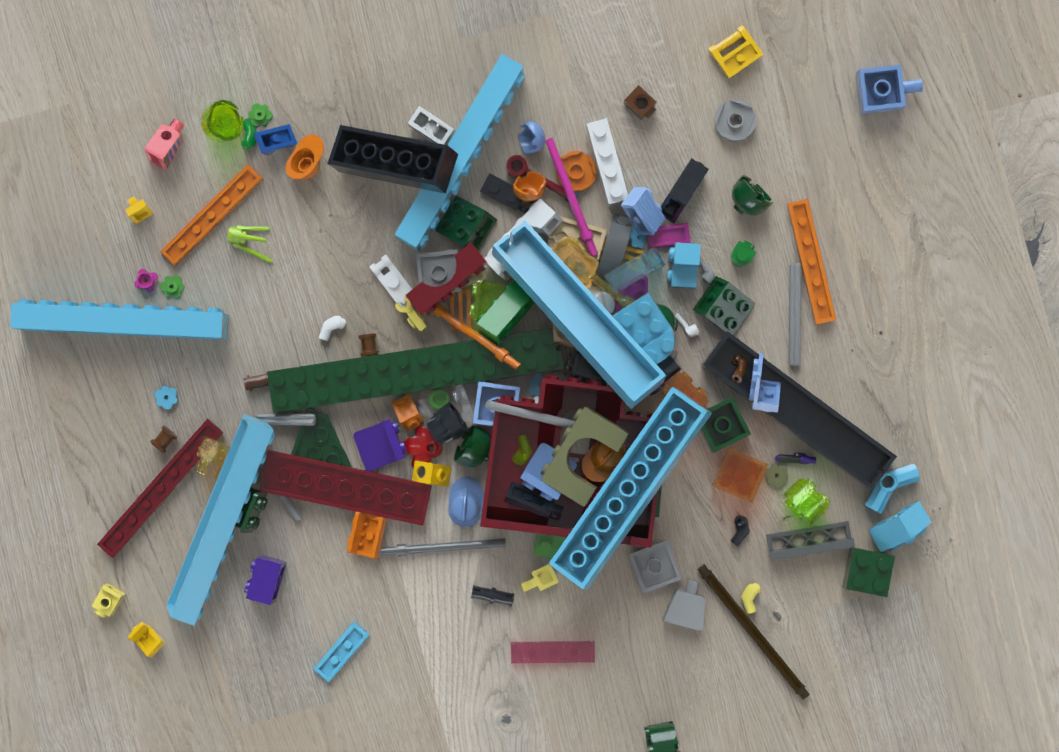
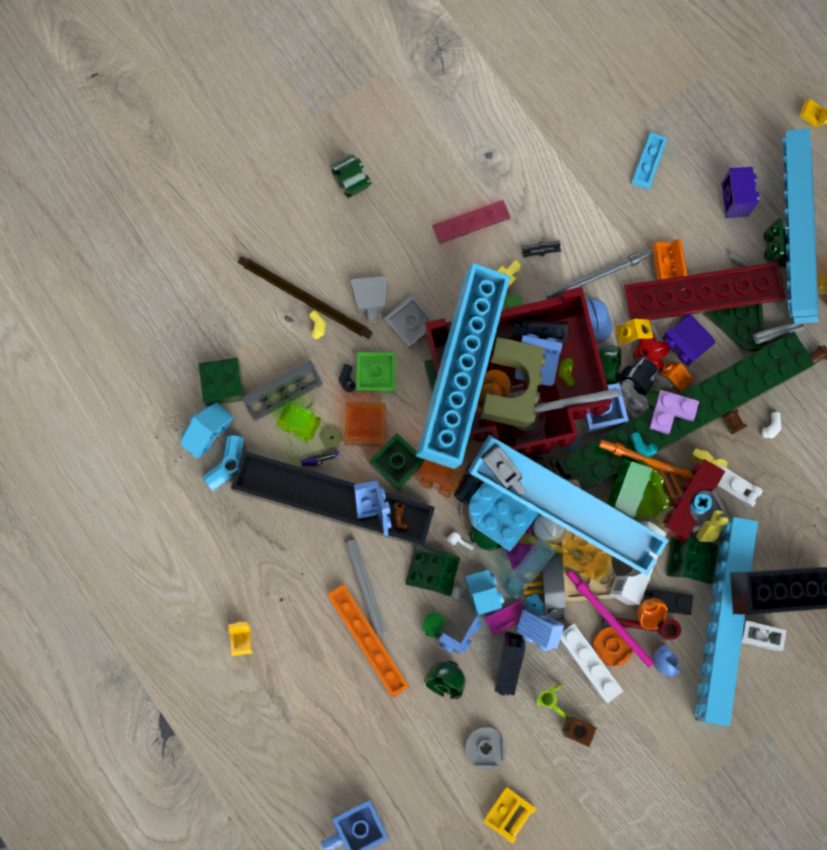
camera: 155 degrees right, 10 degrees down
(432, 380) = (671, 405): none -> lavender plate
(437, 245) = (711, 529): none -> light yellow plate
(446, 276) = (694, 504): none -> medium azure bush
(477, 348) = (640, 447): none -> teal arm
(631, 368) = (503, 468): none -> hinge
(660, 141) = (549, 699): none -> lime plant
(709, 526) = (376, 372): none -> bright green plate
(735, 228) = (449, 644): none -> medium blue bracket
(934, 307) = (240, 638): none -> yellow bracket

